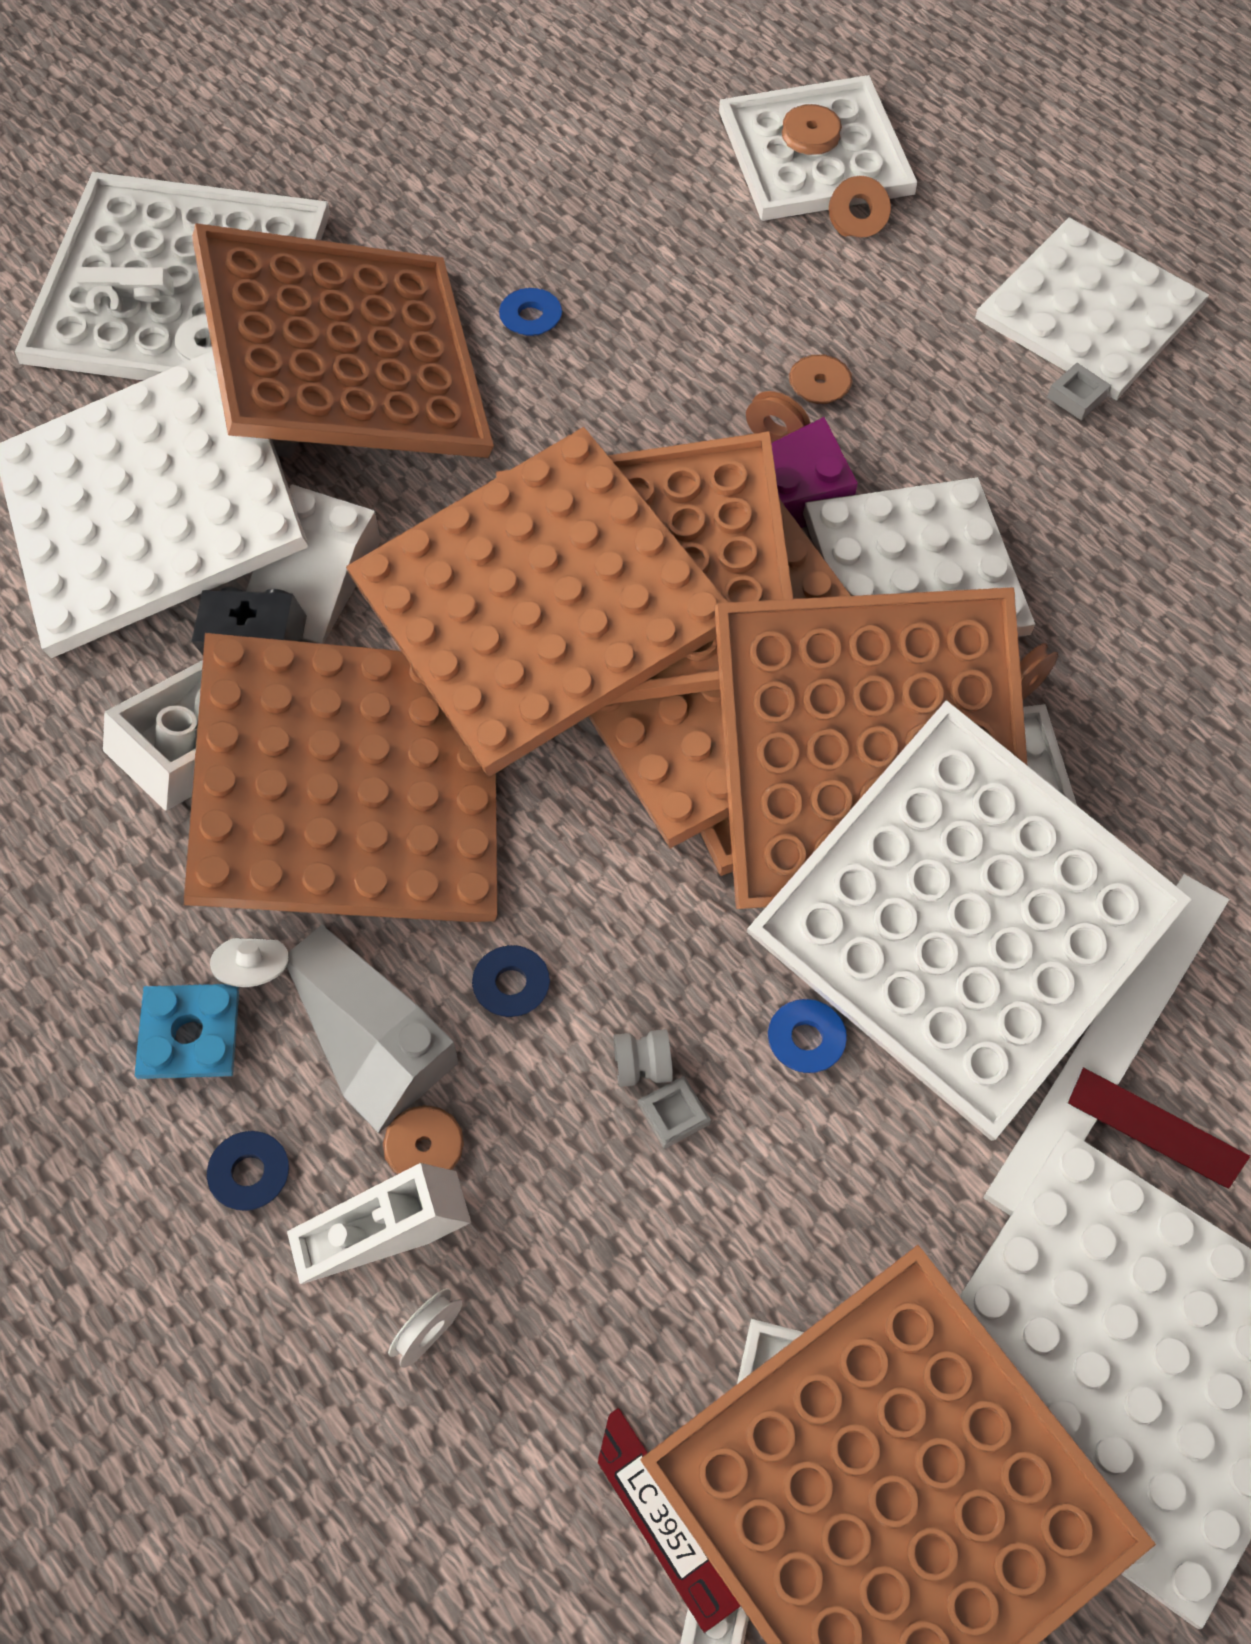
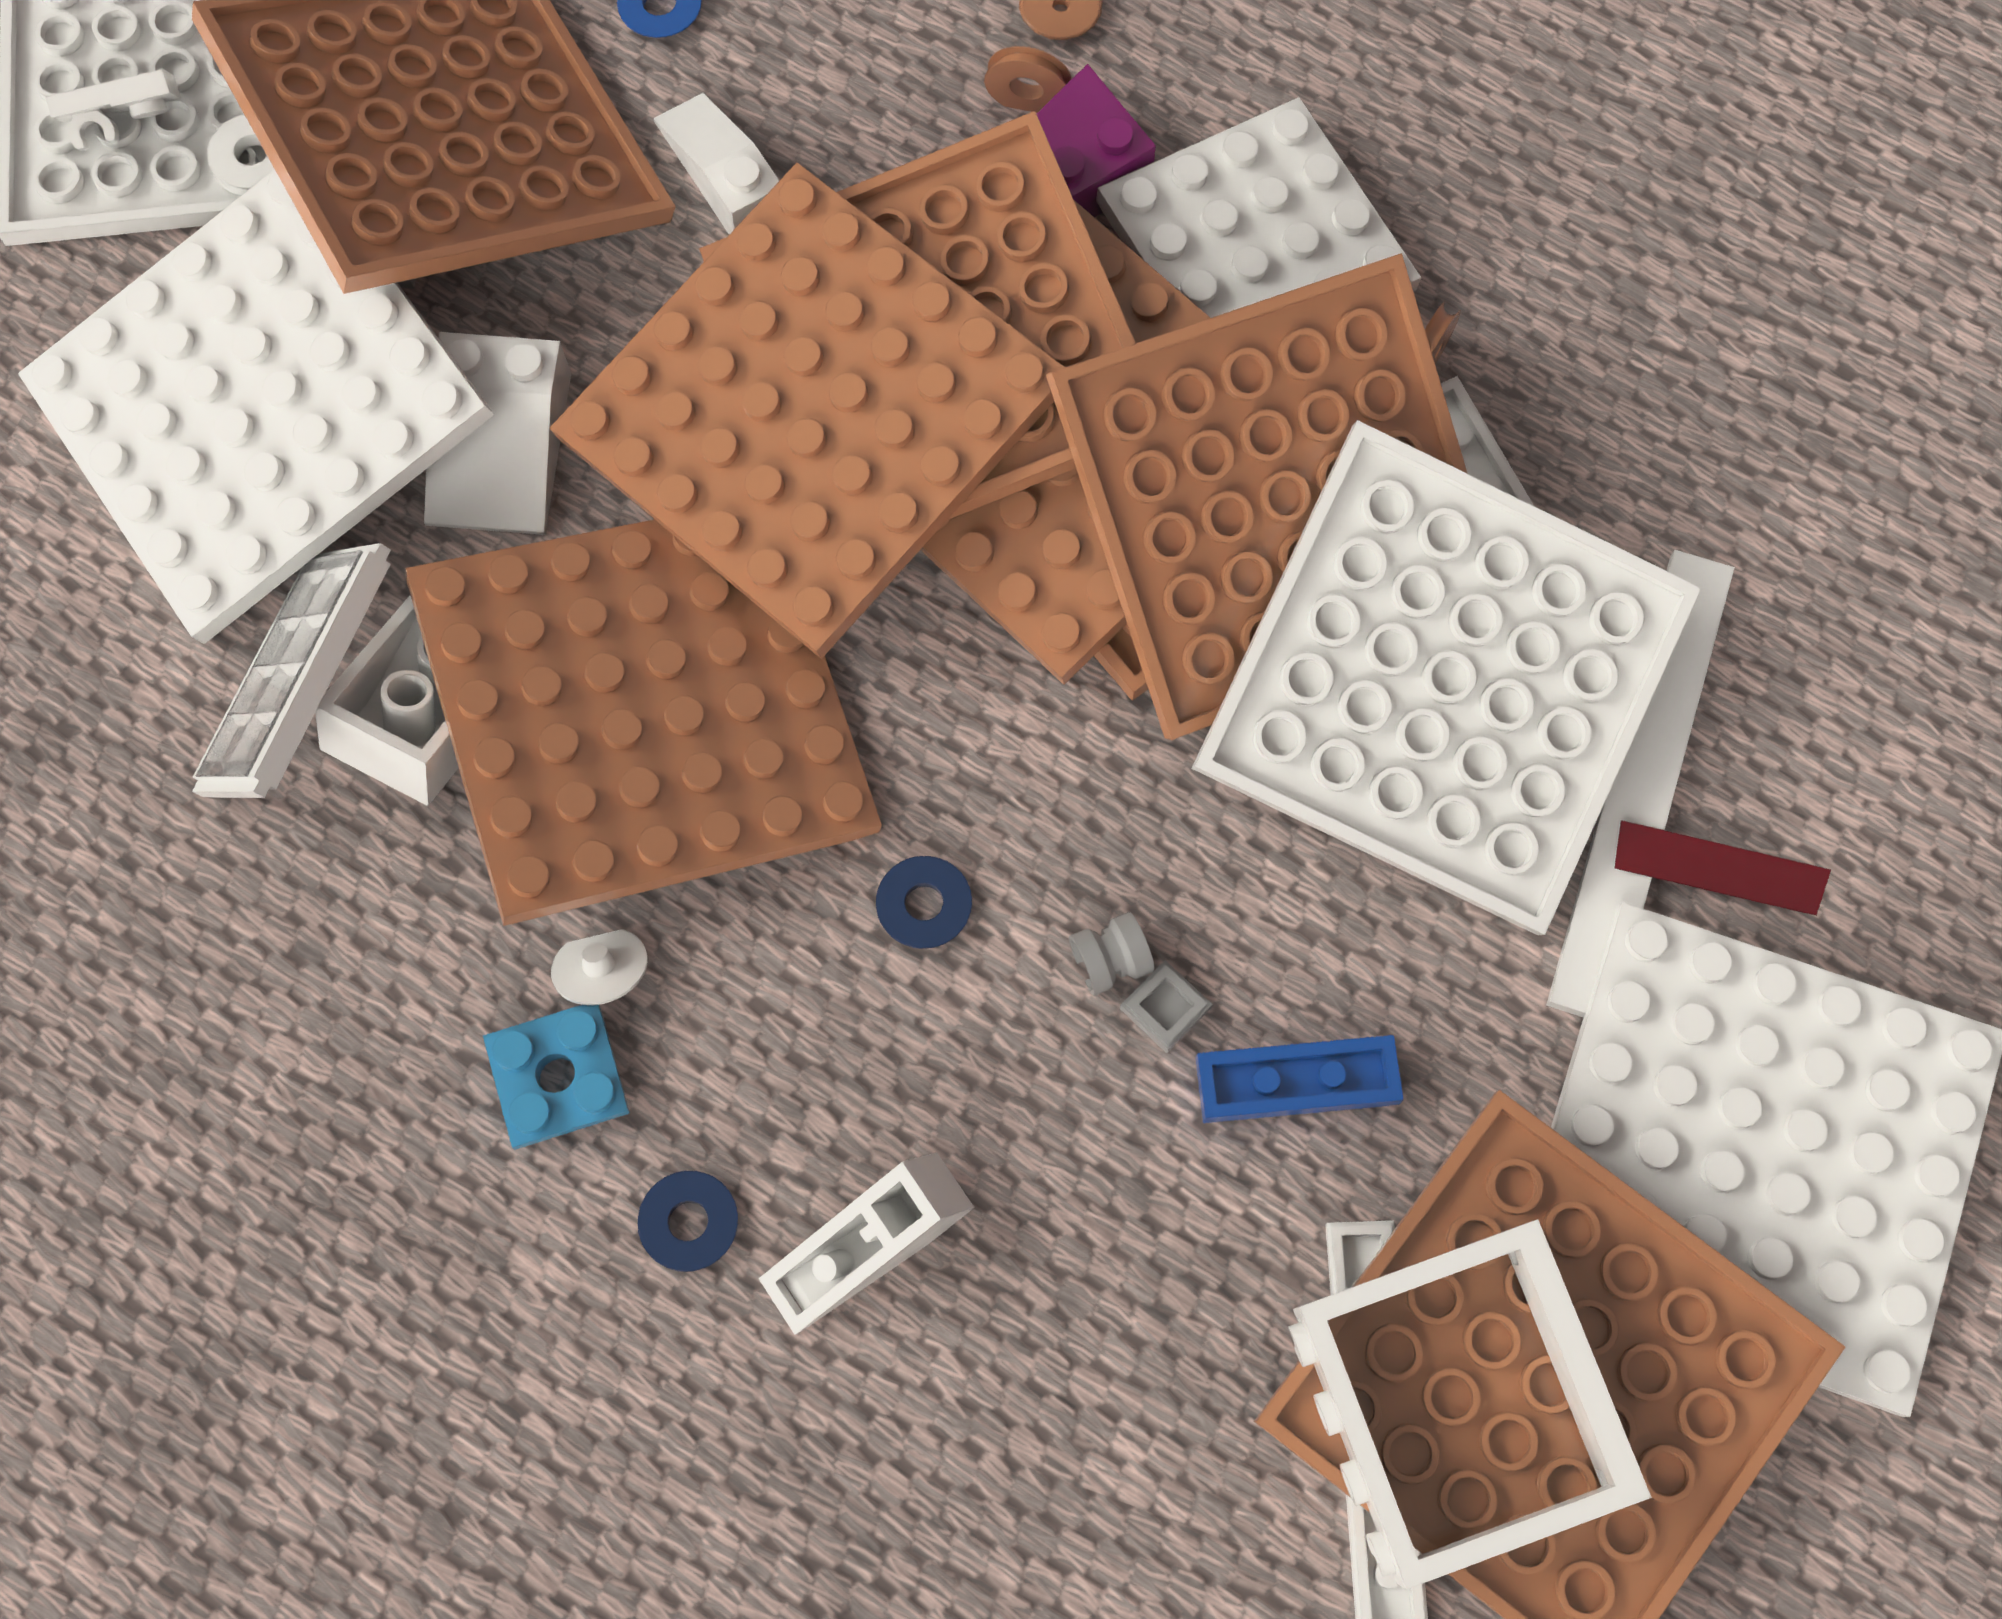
camera: 15 degrees left, 10 degrees up
(100, 688) = (291, 673): none -> piece
(249, 614) = (421, 520): black brick -> none
(370, 1031) = (775, 1012): light grey wedge -> none
(420, 1124) = (878, 1104): nougat piece -> none
(425, 1327) = (963, 1345): white piece -> none
(533, 416) = (717, 158): none -> white slope
(661, 1526) = (1230, 1426): sticker -> none
(762, 1197) = (1298, 1079): none -> blue plate
(807, 1013) = (1298, 842): blue piece -> none
(914, 1477) = (1574, 1367): none -> white window

